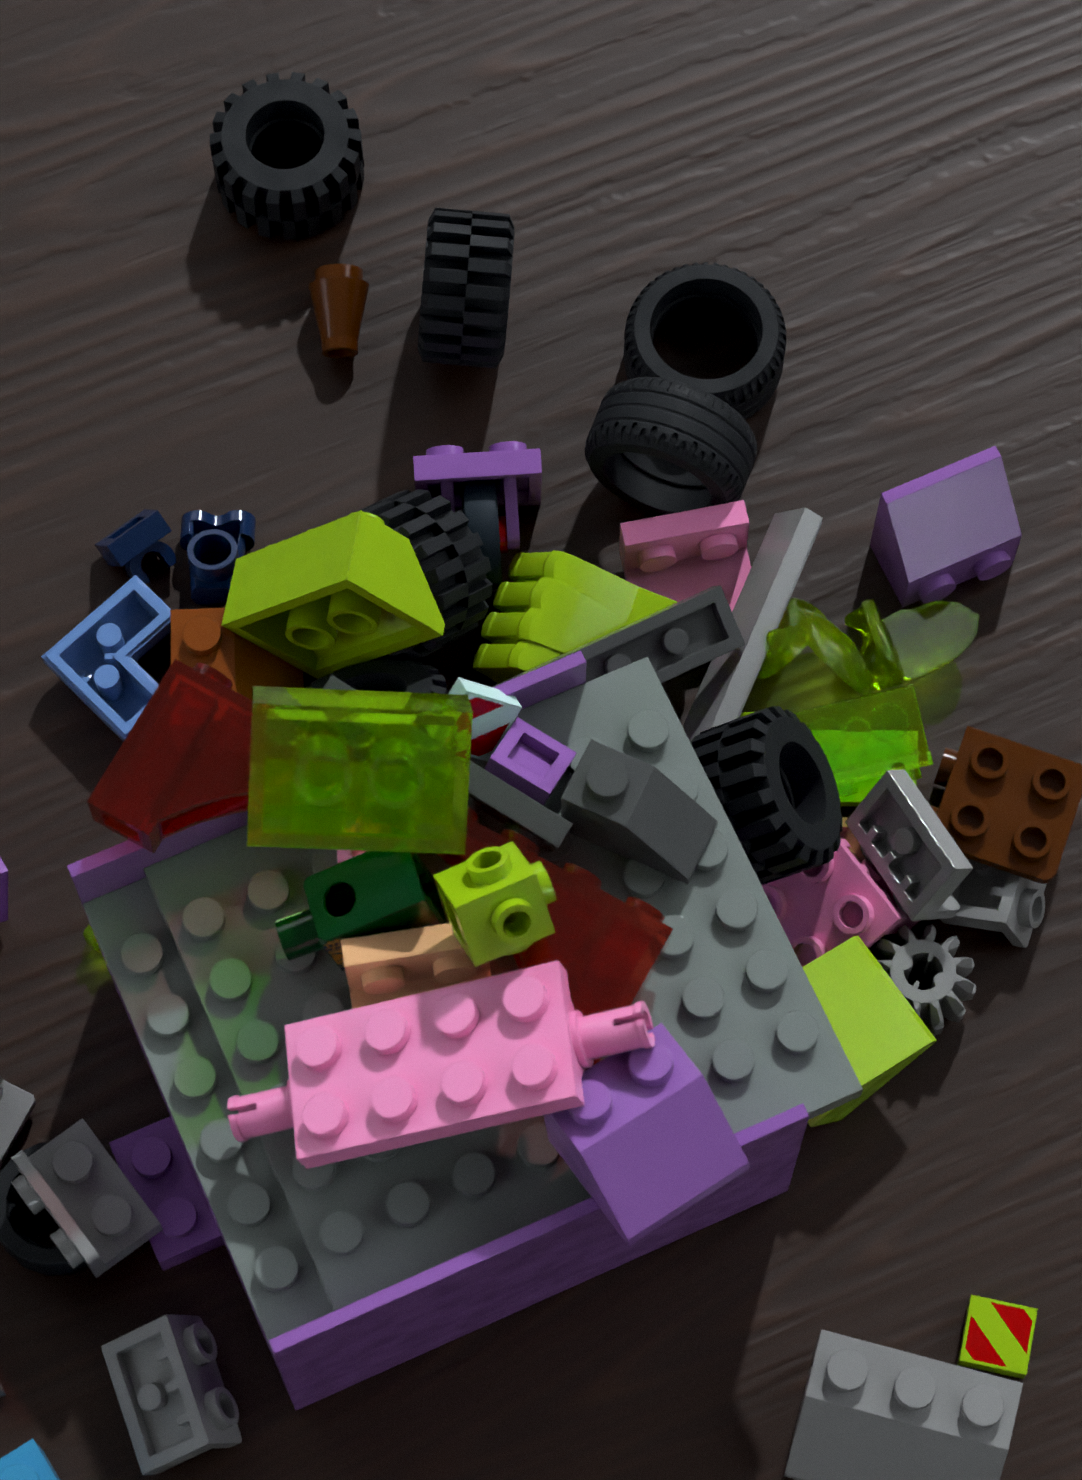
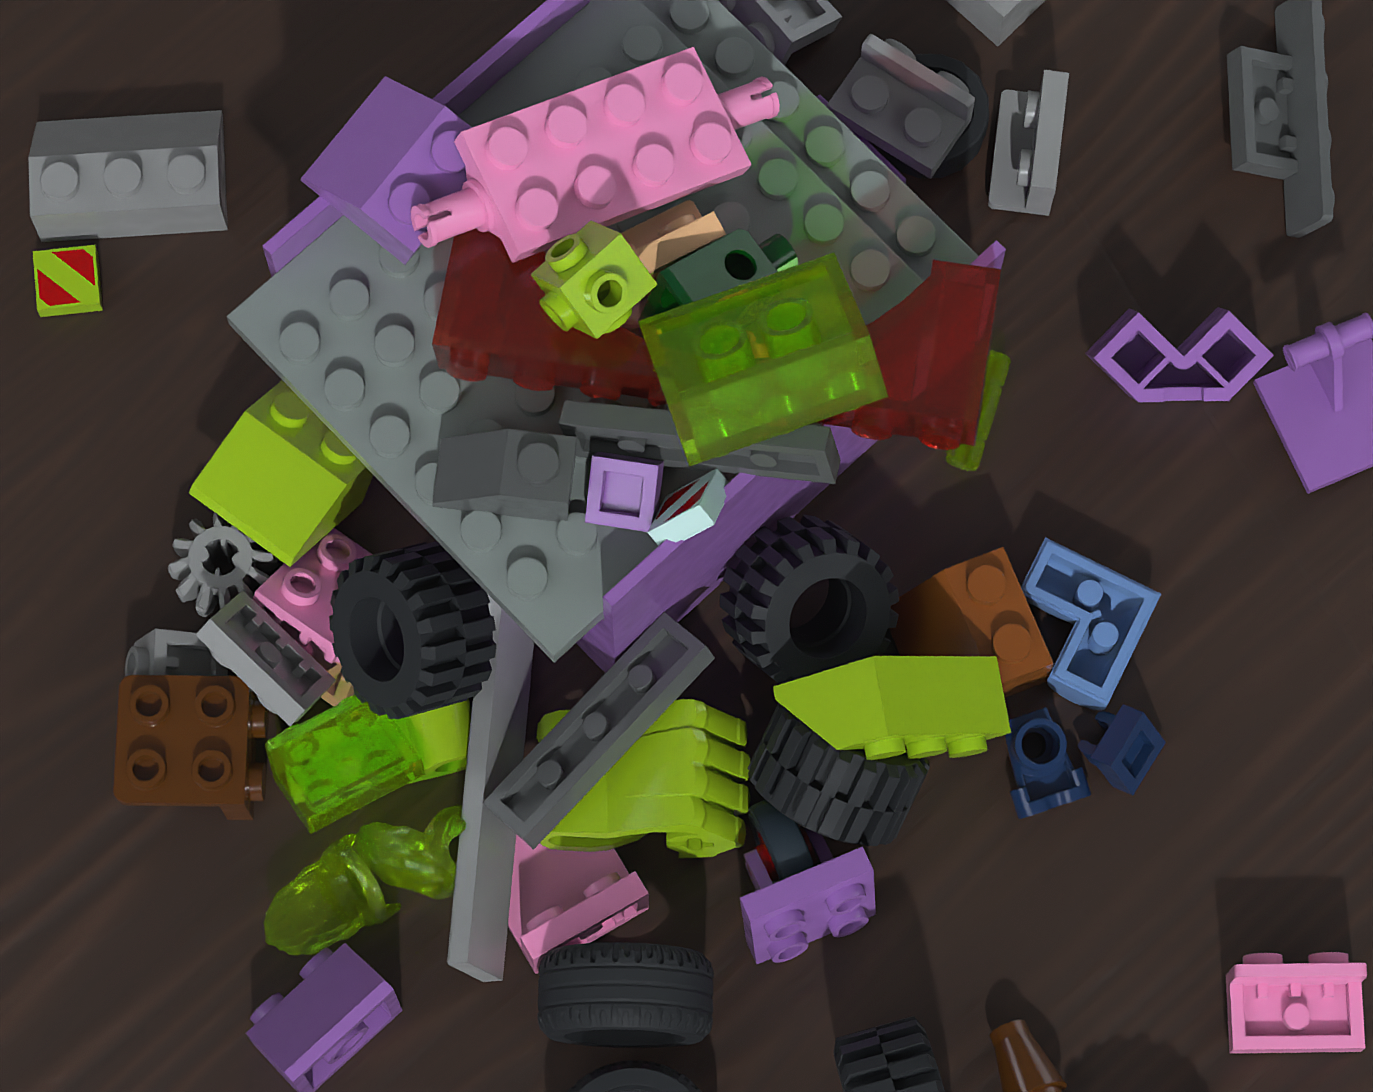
camera: 160 degrees right, 5 degrees up
(83, 286) = (1295, 1004): none -> bright pink bracket

